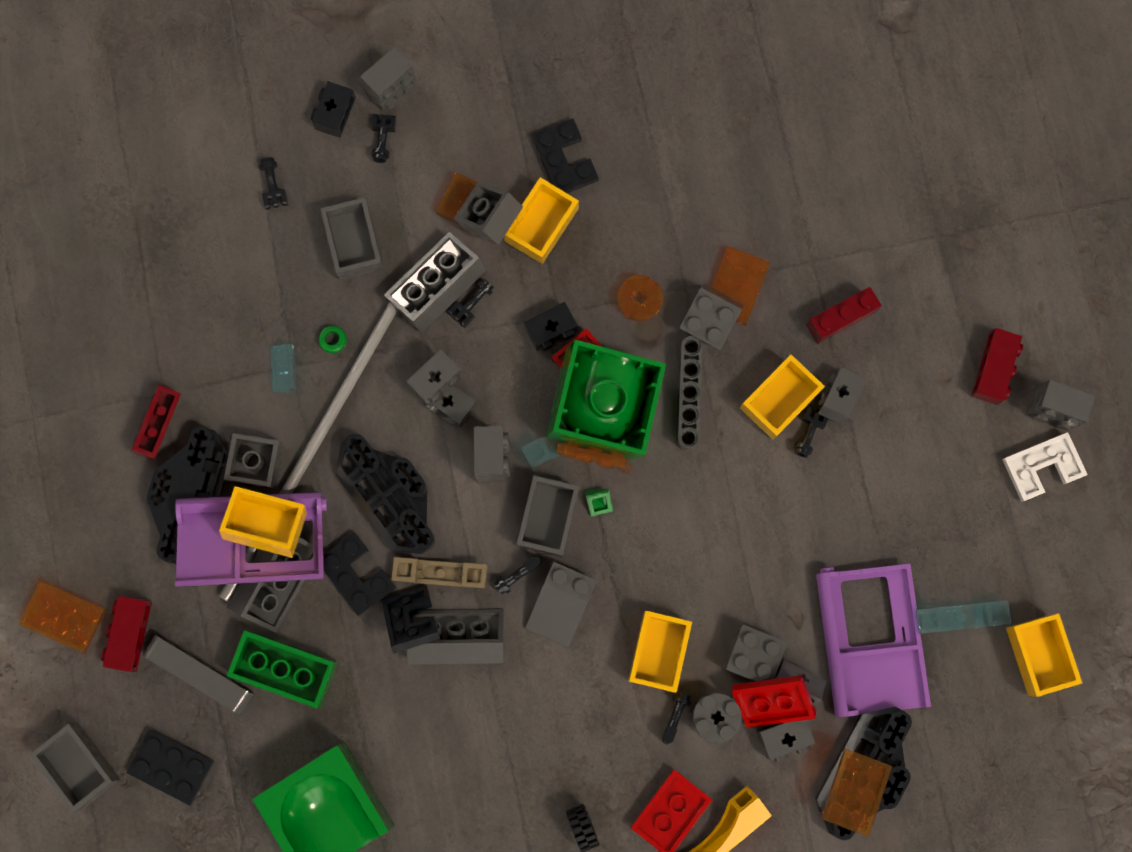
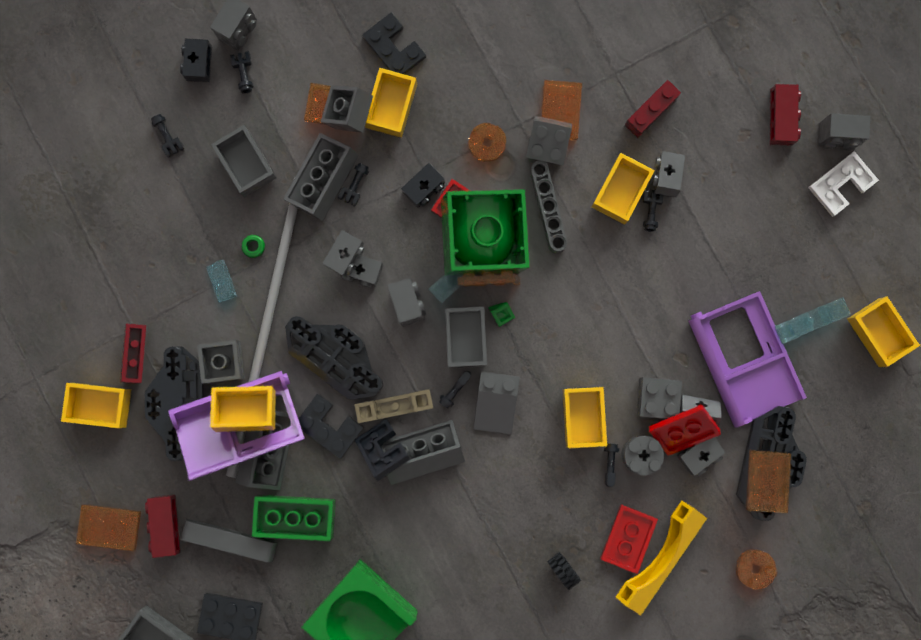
camera: 10 degrees left, 5 degrees up
(94, 469) = (96, 405): none -> yellow piece

